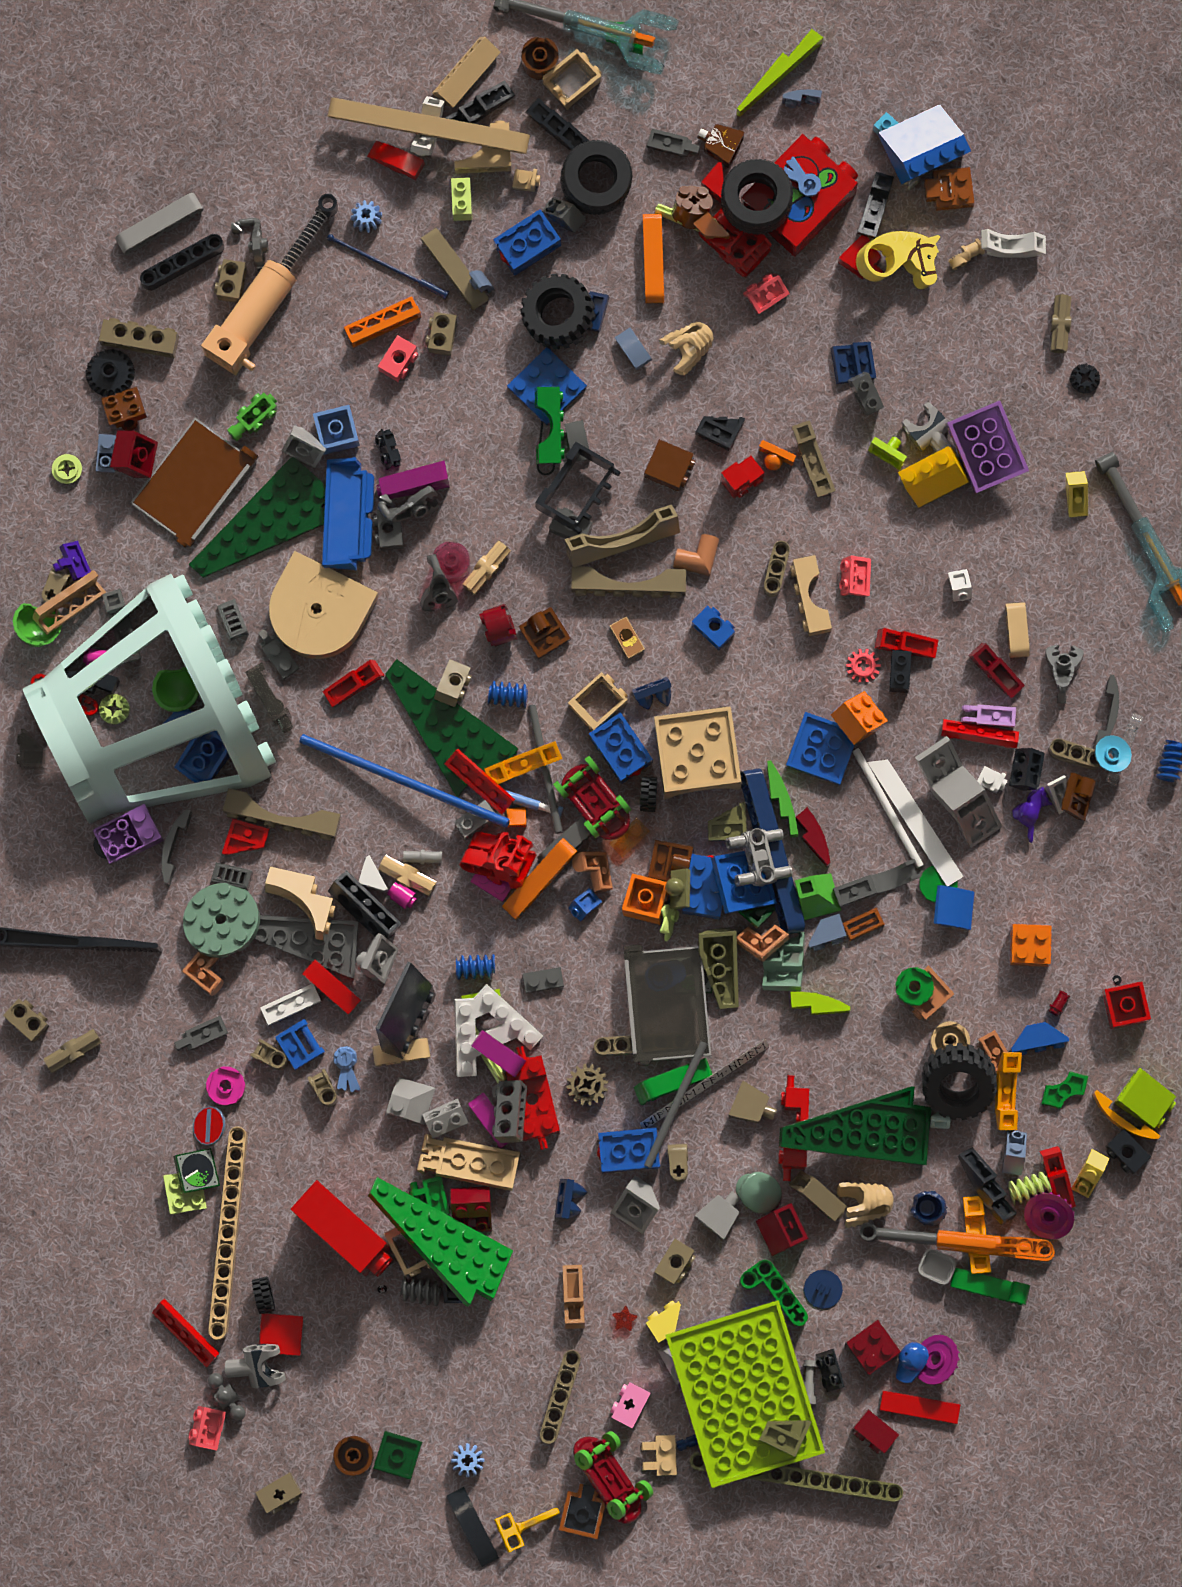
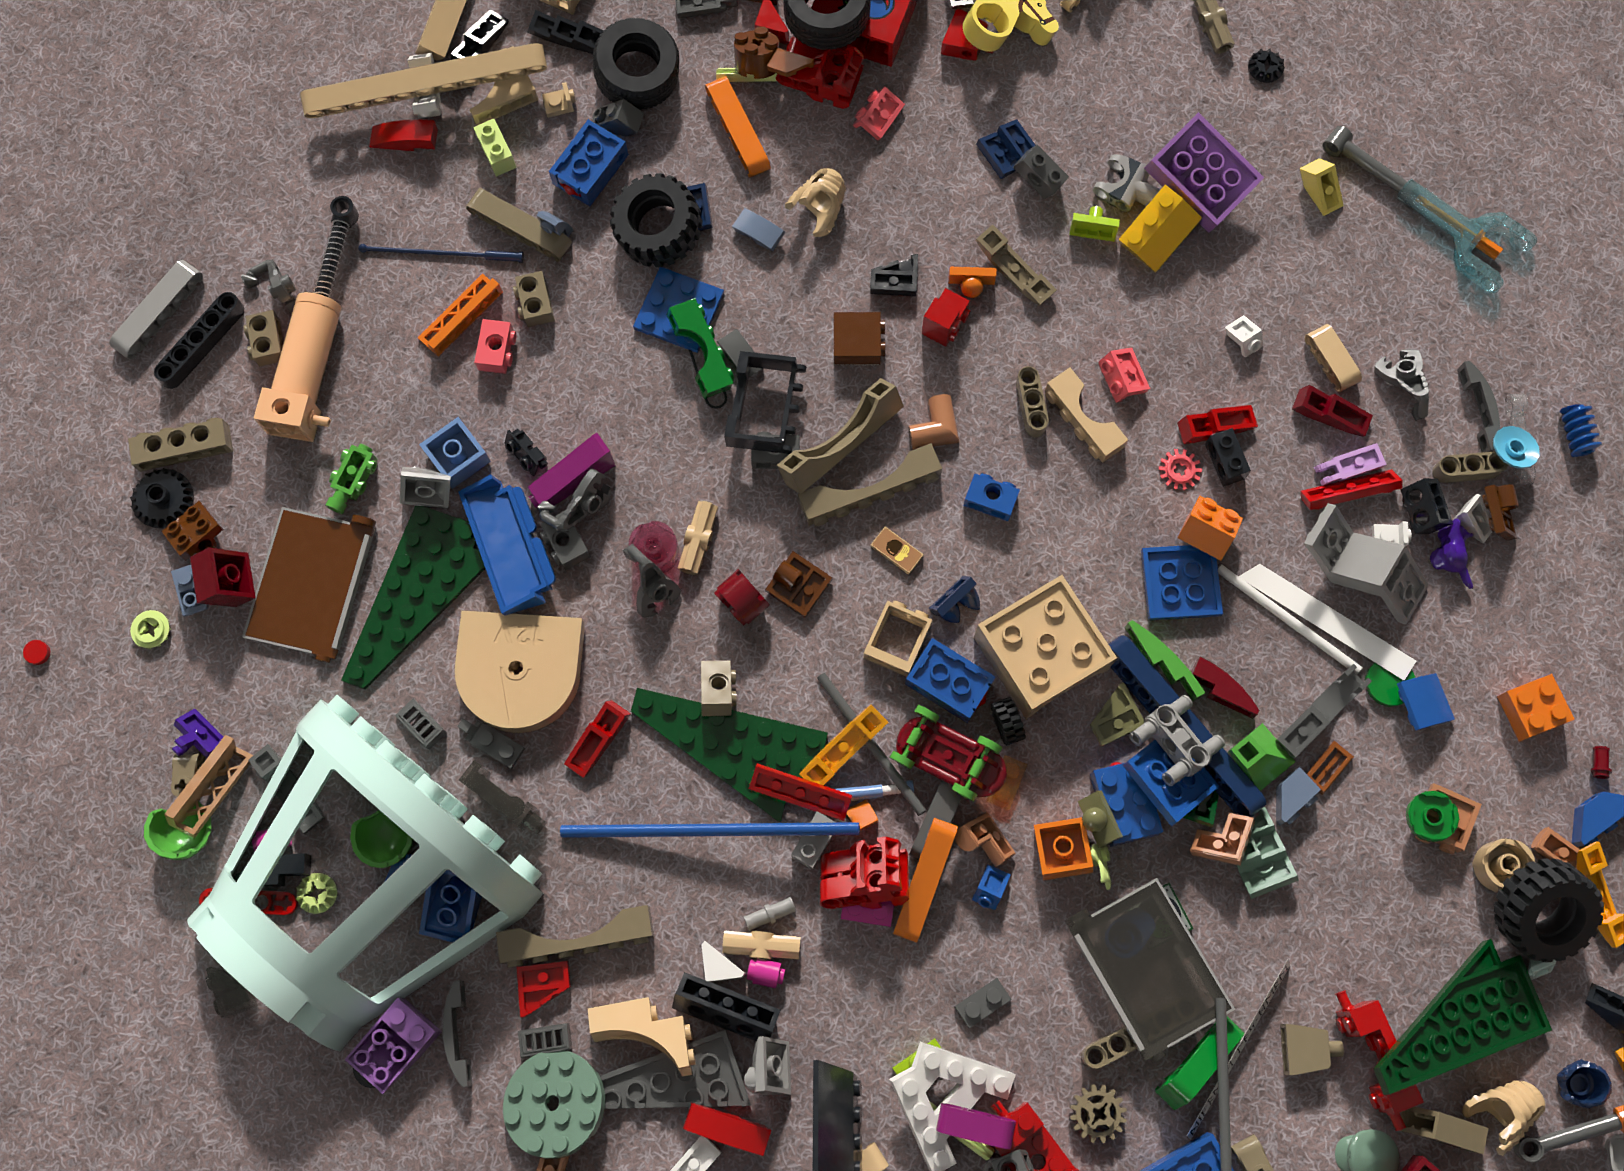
camera: 25 degrees left, 5 degrees down
(360, 221) = (388, 212): light blue gear -> none
(475, 967) = (895, 1023): blue piece -> none
(508, 694) = (788, 673): blue piece -> none
(667, 858) = (1064, 789): reddish brown plate -> none
(719, 960) = (1188, 887): olive wedge -> none
(818, 1003) = (1324, 887): lime slope -> none

